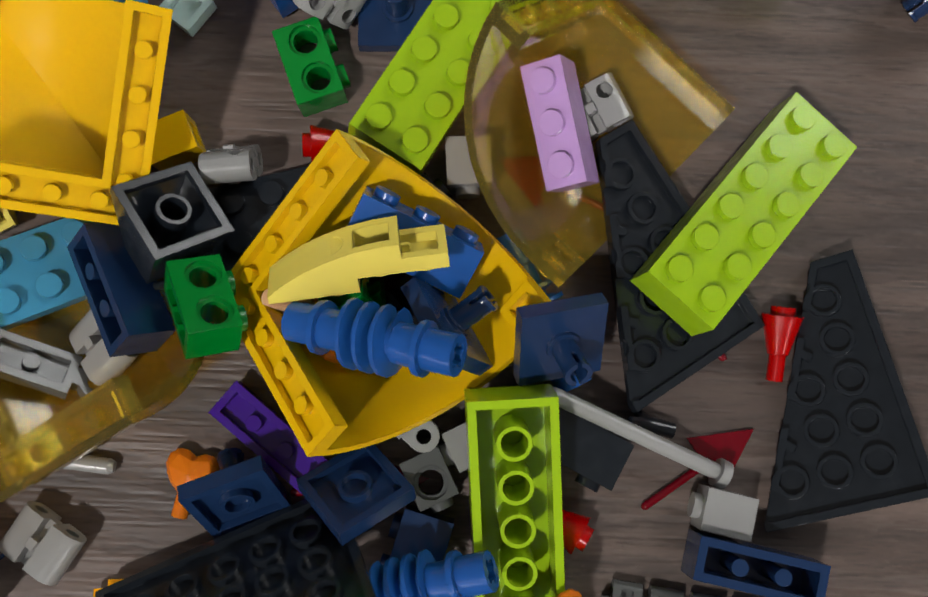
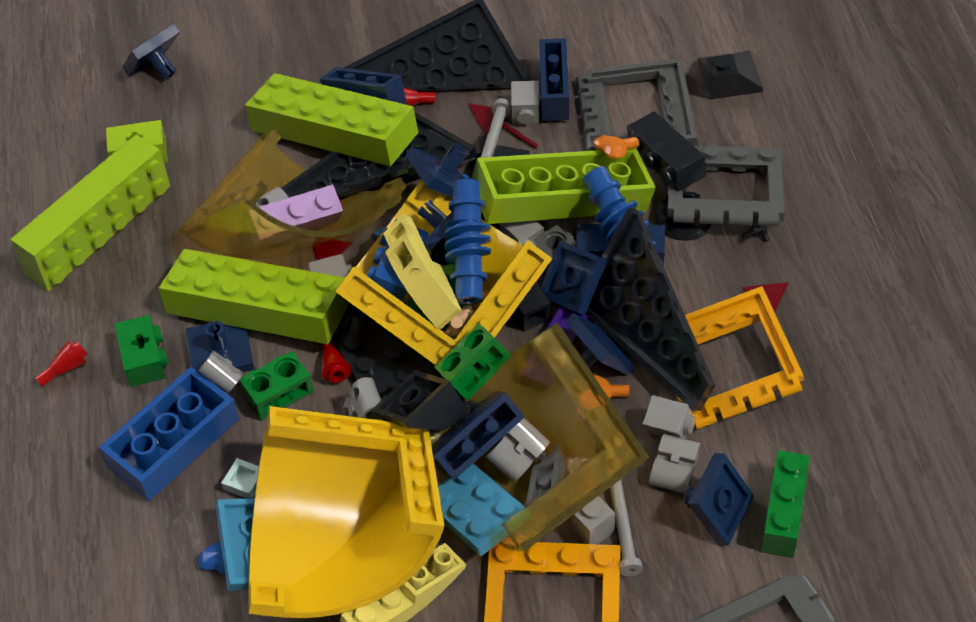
camera: 100 degrees left, 30 degrees down
(98, 555) = (668, 418): none -> light grey brick
(792, 273) = (369, 83): none -> dark blue brick

